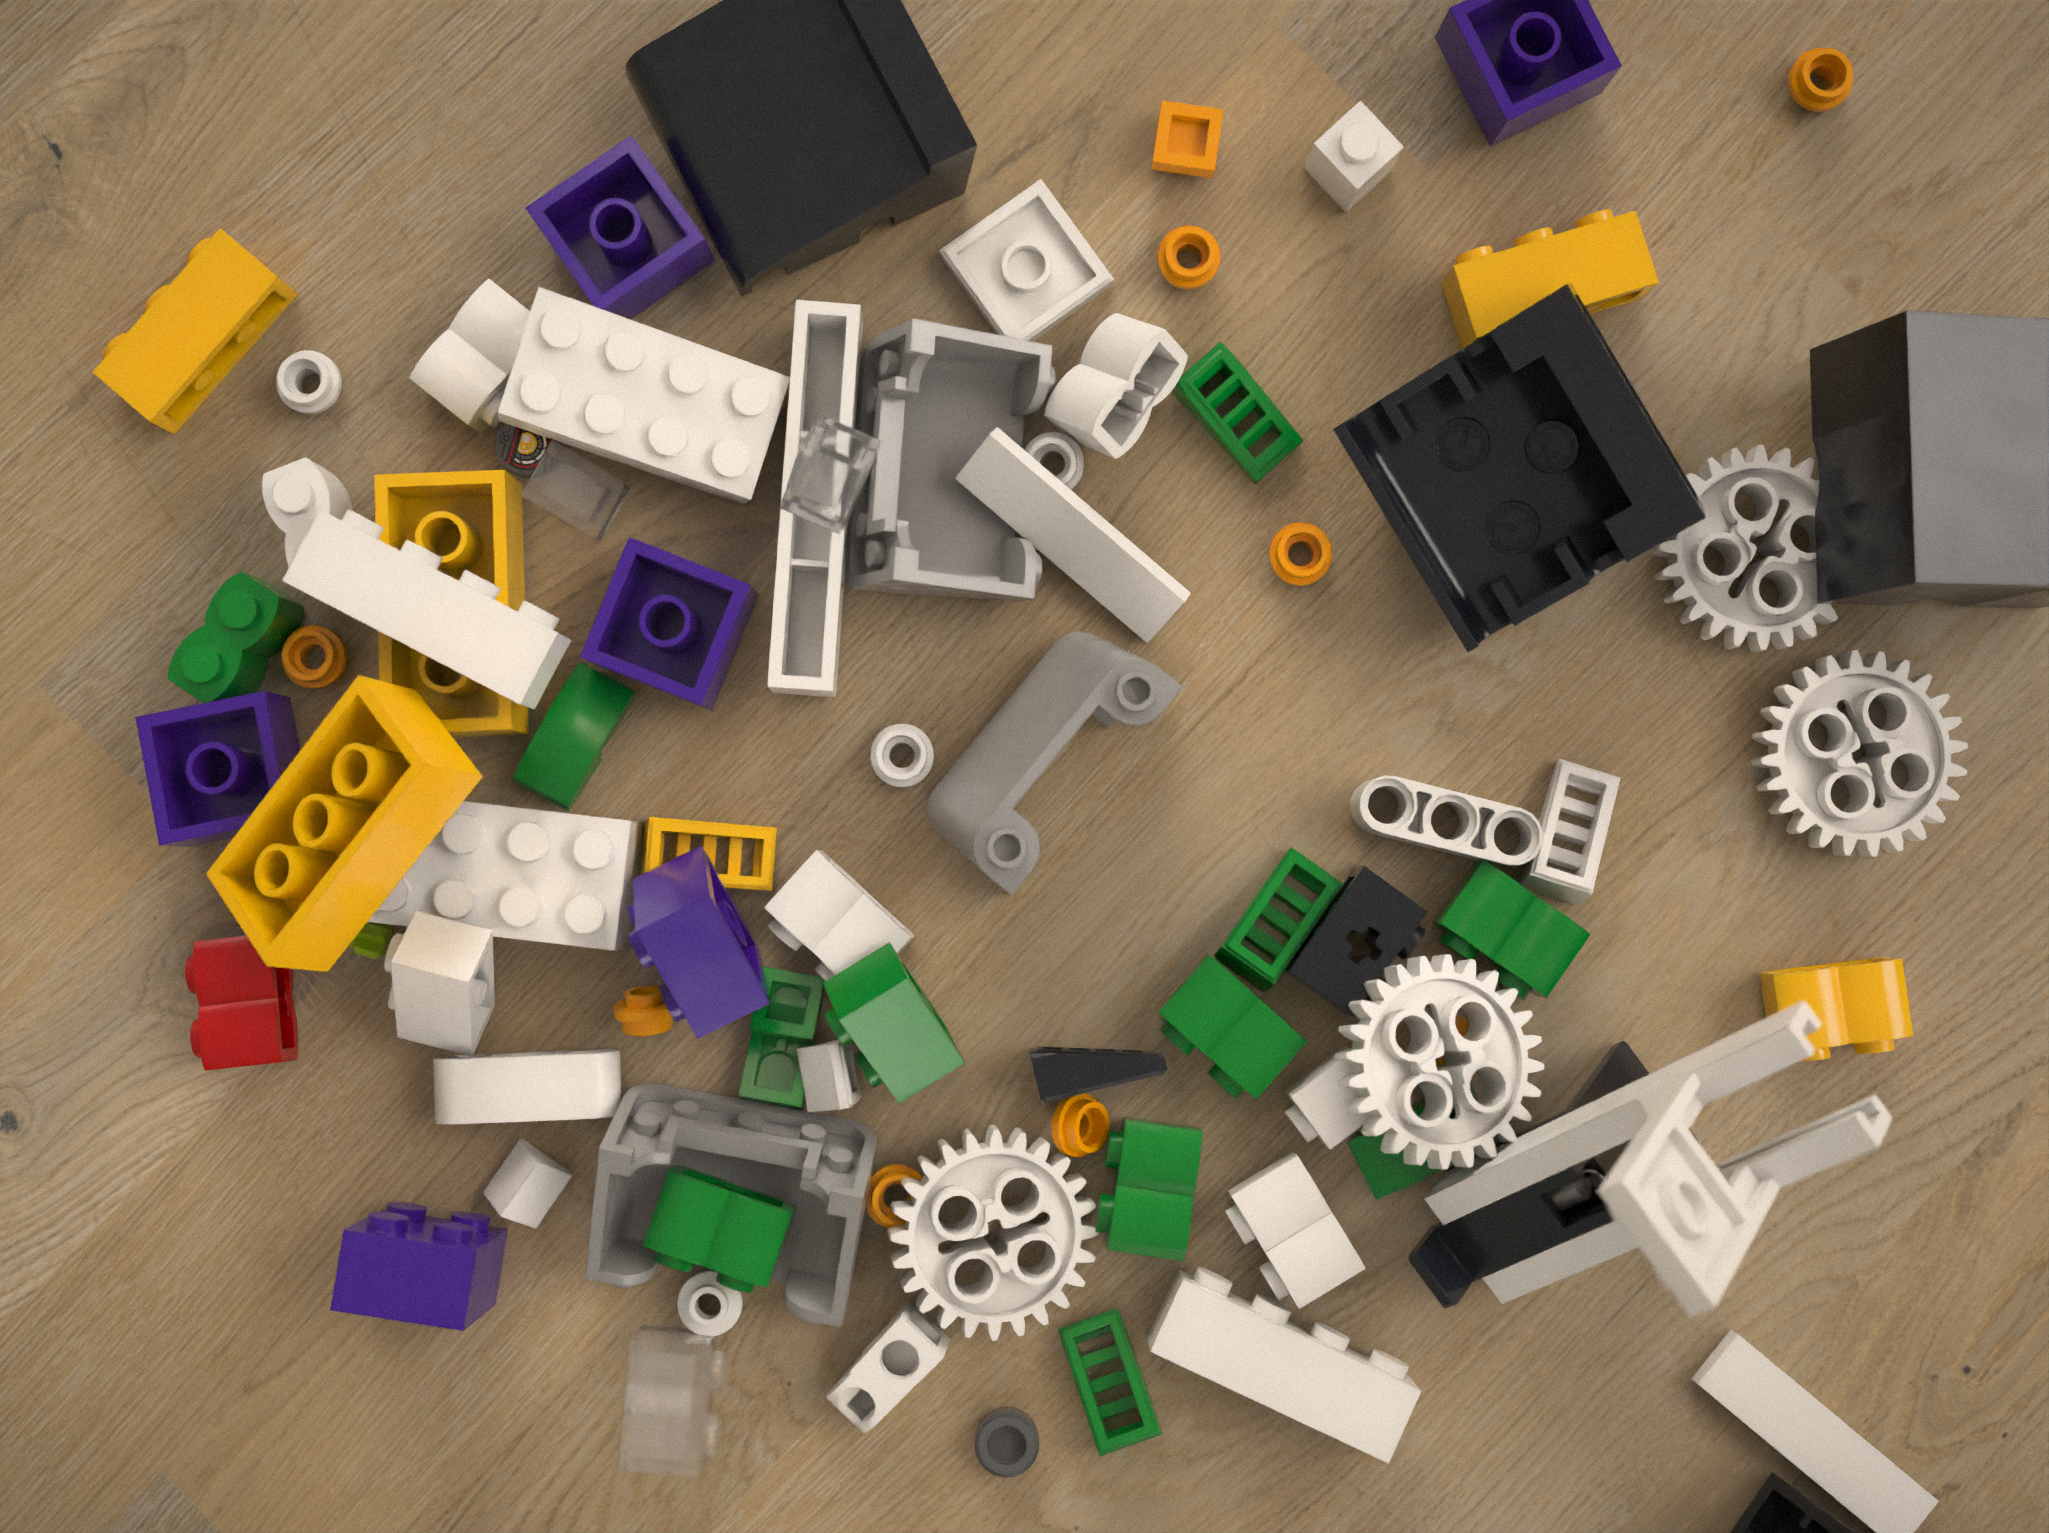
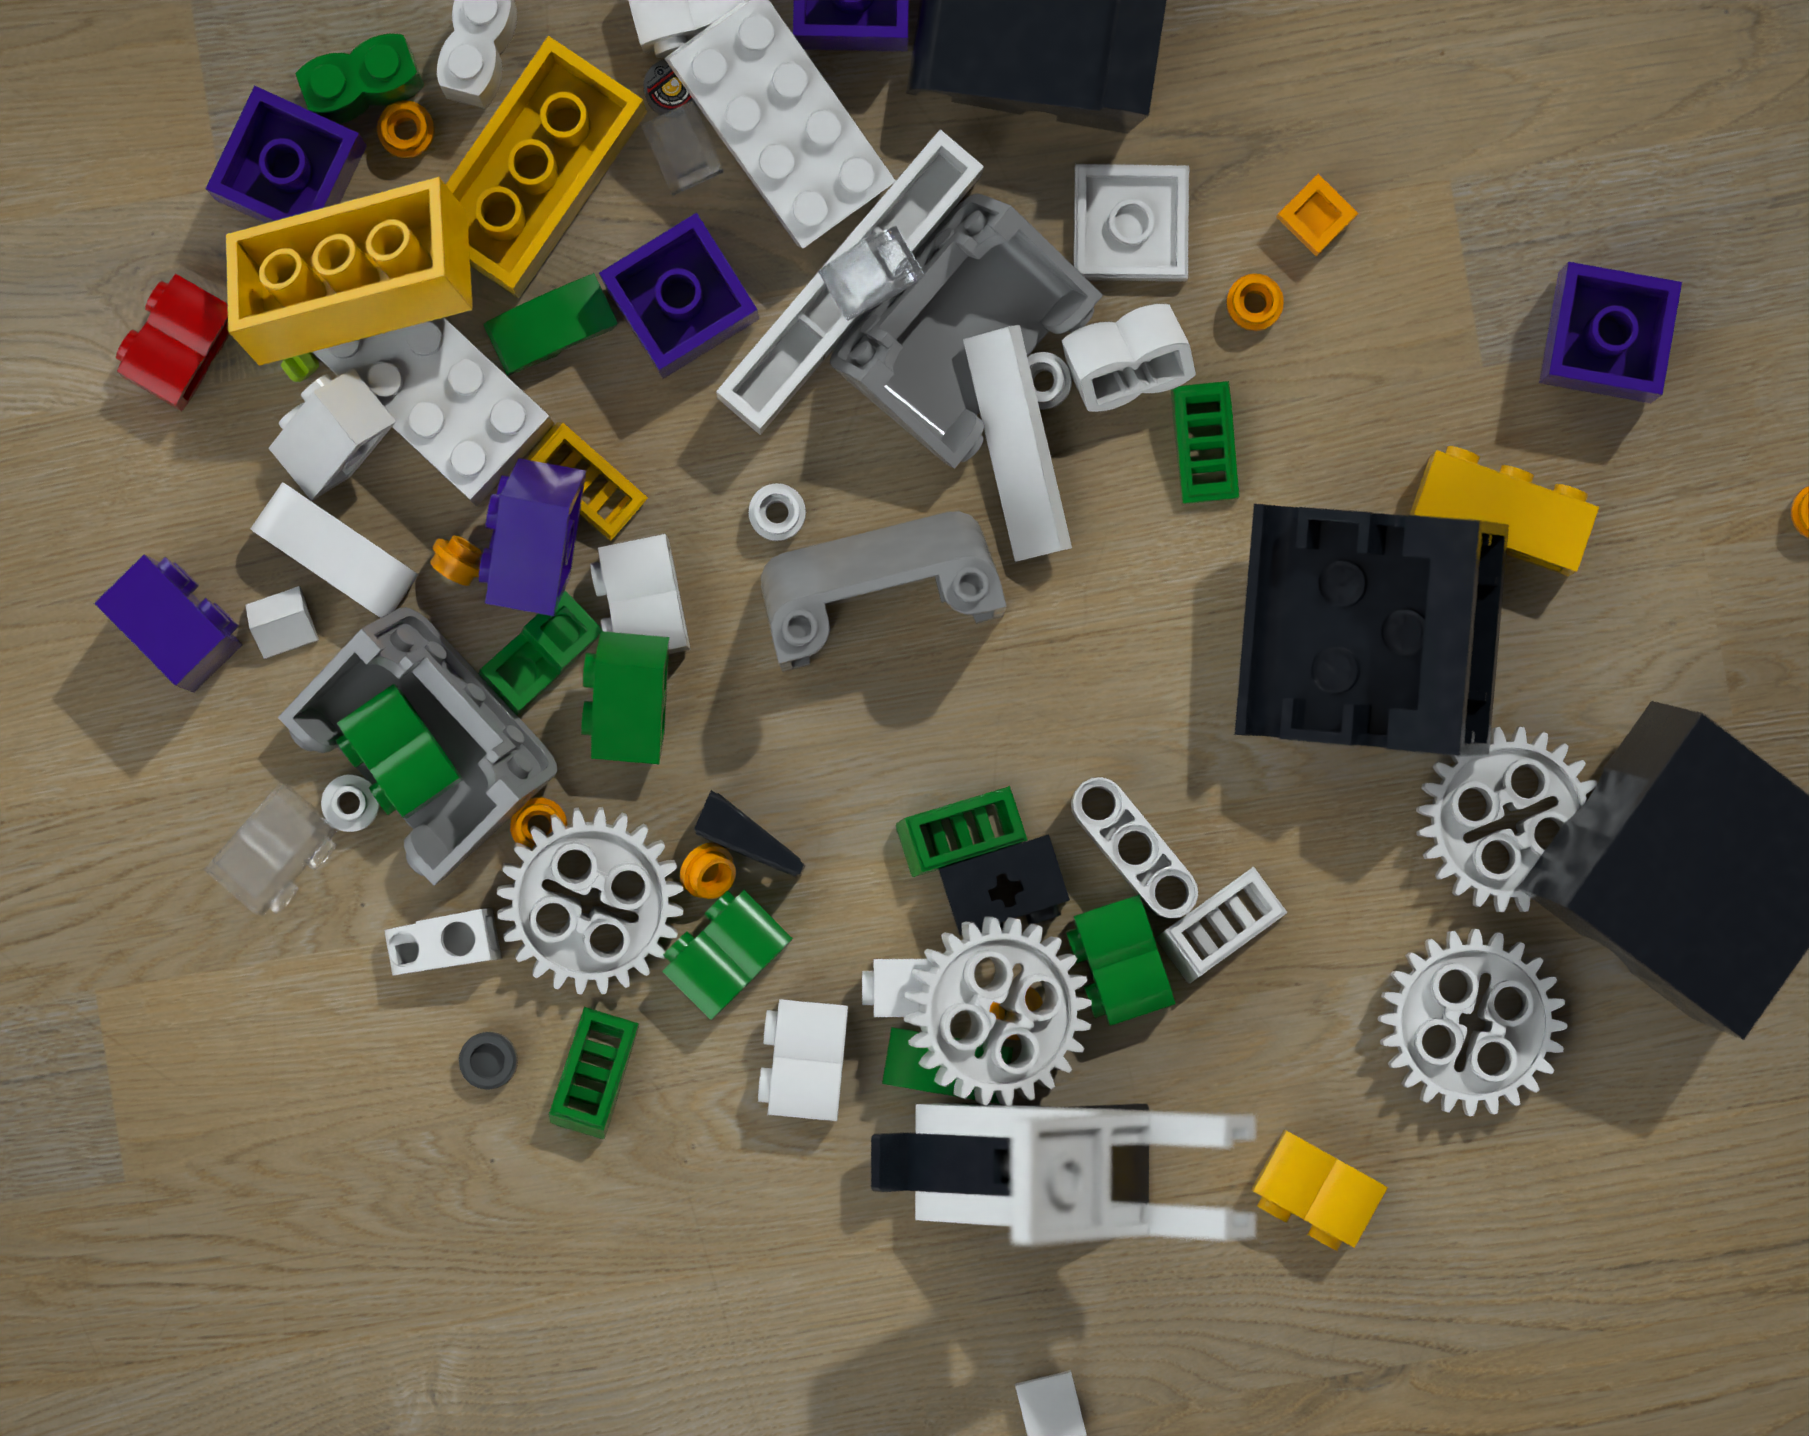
camera: 40 degrees right, 0 degrees up
(427, 609) = (518, 163): white brick -> none
(829, 1076) = (555, 703): white slope -> none
(1230, 1028) = (867, 881): green brick -> none
(1284, 1364) = (727, 1147): white brick -> none
(1314, 540) = (1187, 565): light orange plate -> none
(1353, 156) = (1427, 317): white brick -> none

